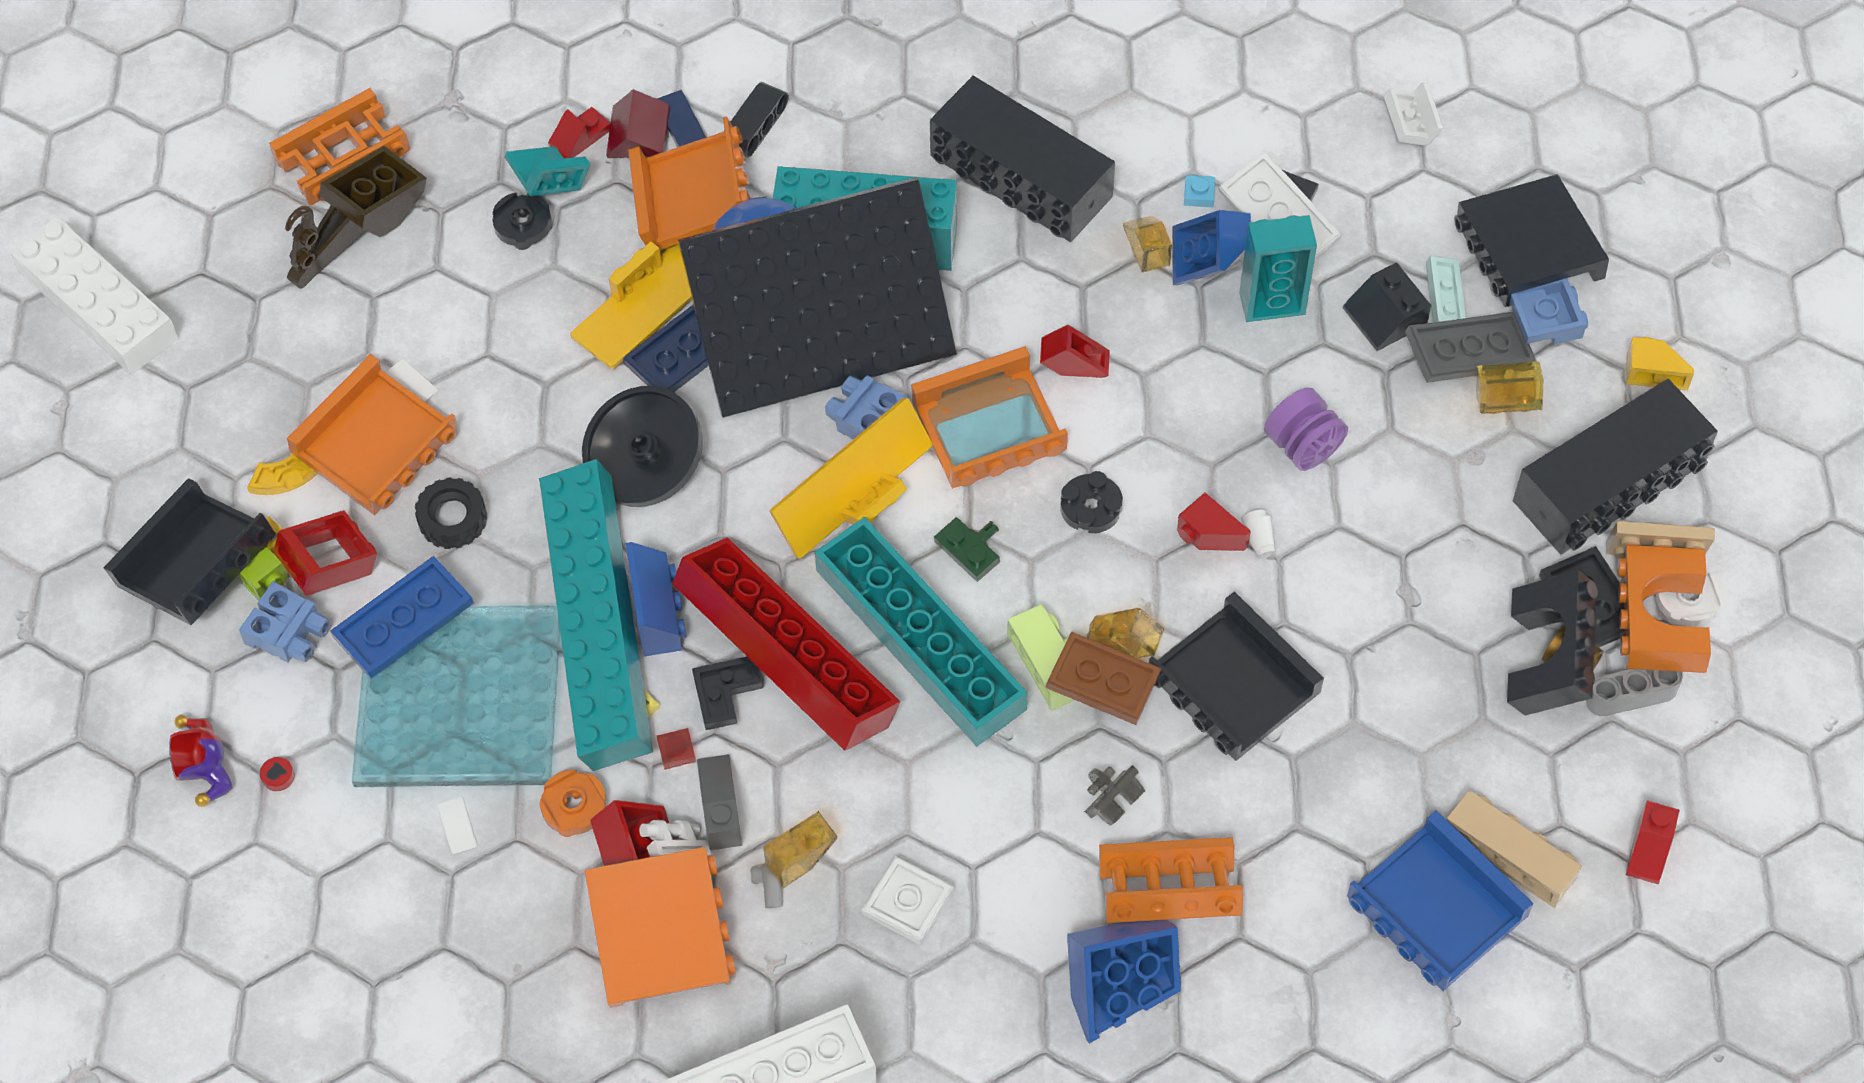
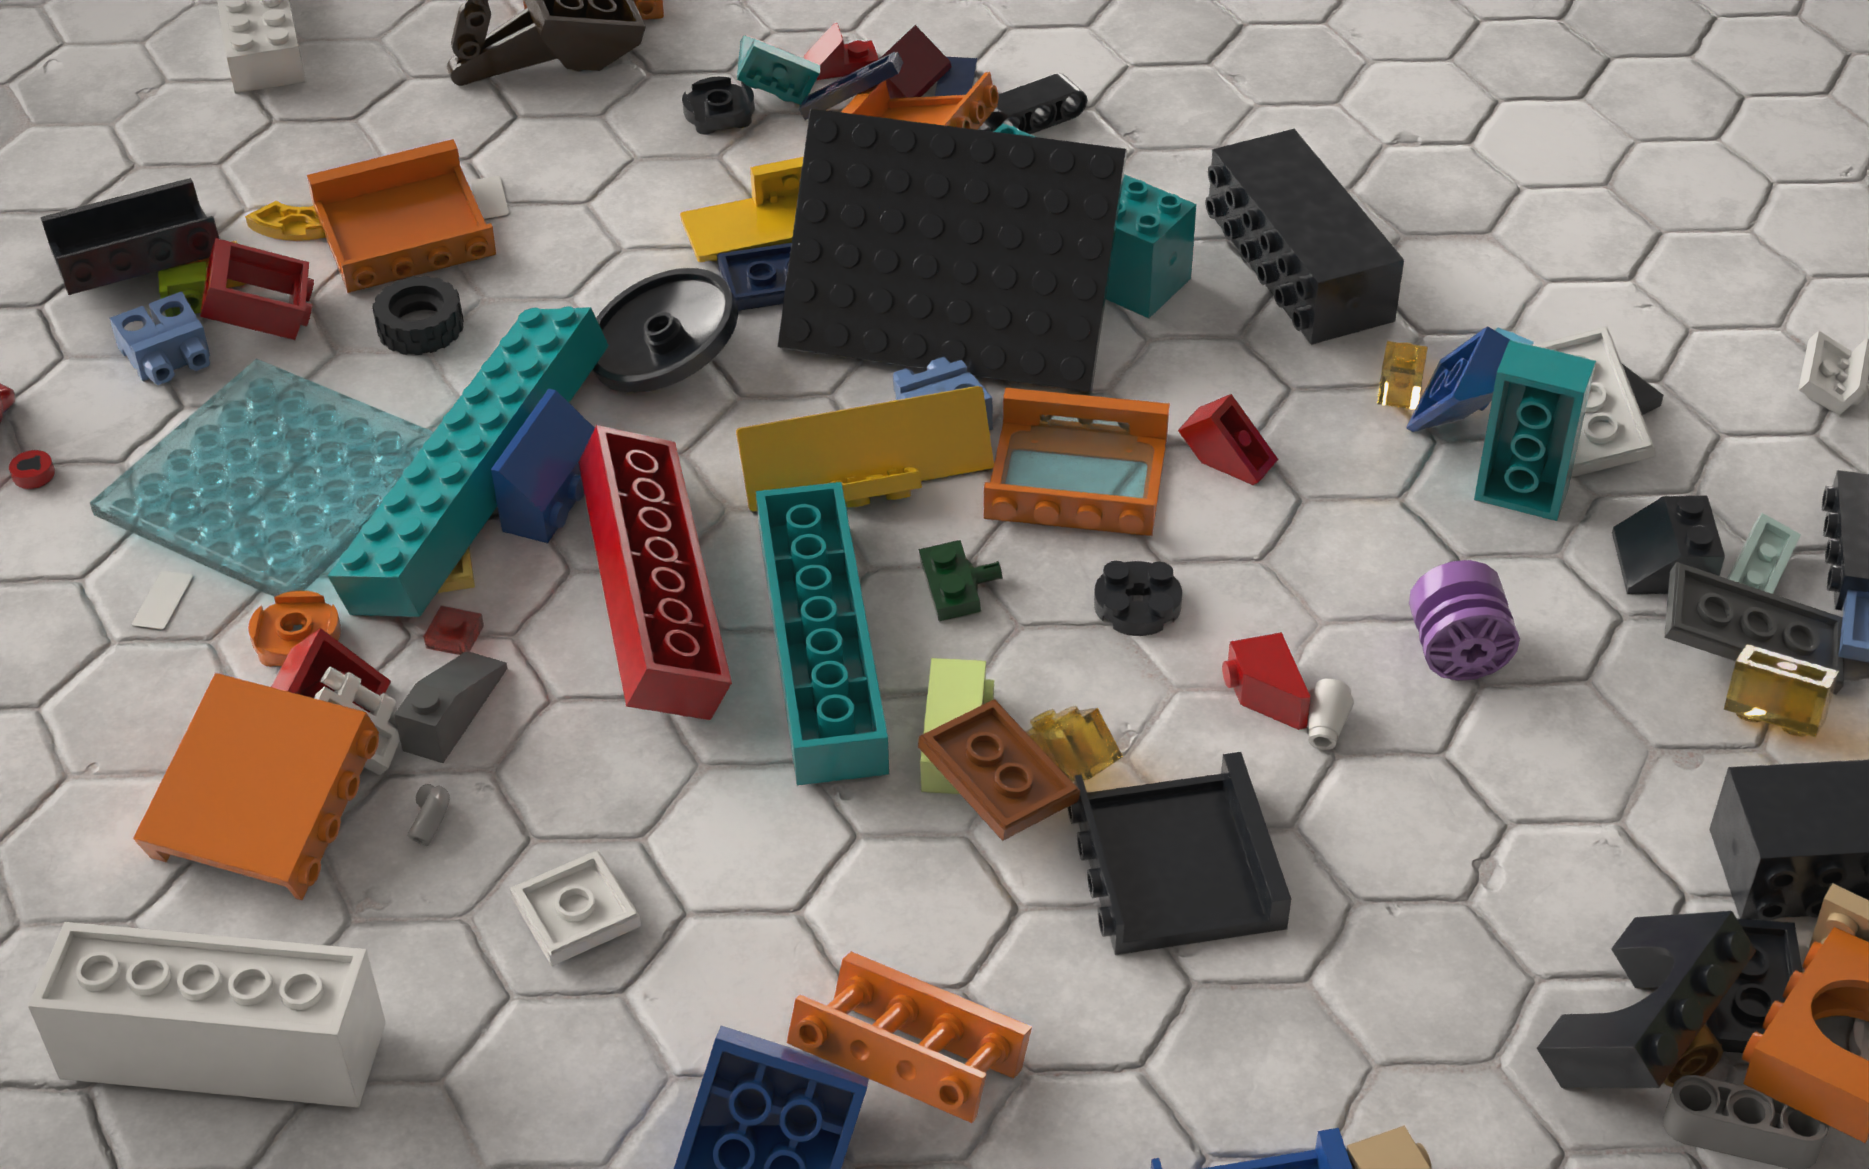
camera: 30 degrees right, 15 degrees down
(402, 617) = (274, 374): blue plate -> none
(619, 164) = (852, 84): none -> tile
(717, 683) = (545, 588): black plate -> none
(799, 848) = (489, 786): clear yellow slope -> none
(1124, 784) = (918, 900): clear smoke hips -> none

